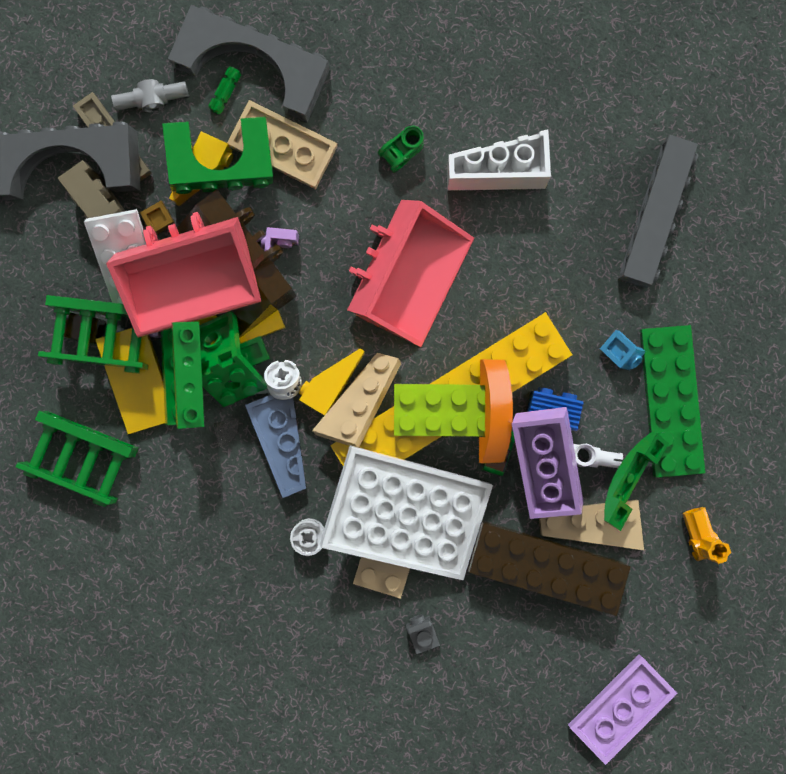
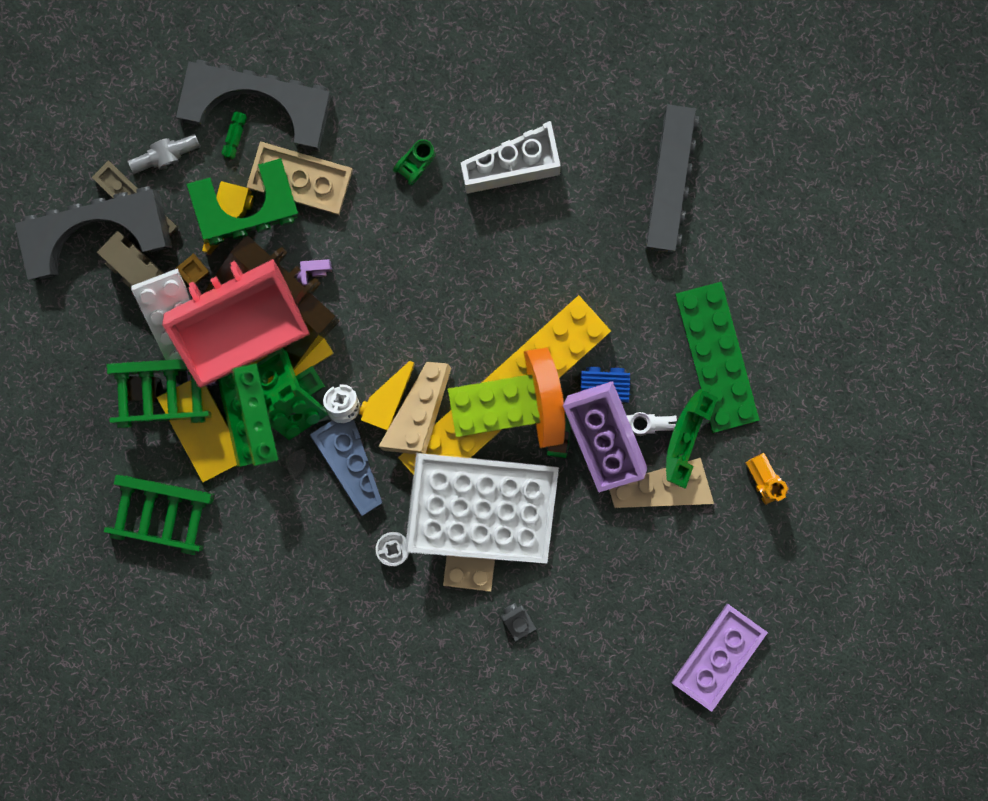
camera: 10 degrees left, 0 degrees up
(410, 271) = (444, 279): coral piece -> none
(549, 568) = (624, 536): dark brown brick -> none
(622, 351) = (660, 318): dark azure bracket -> none

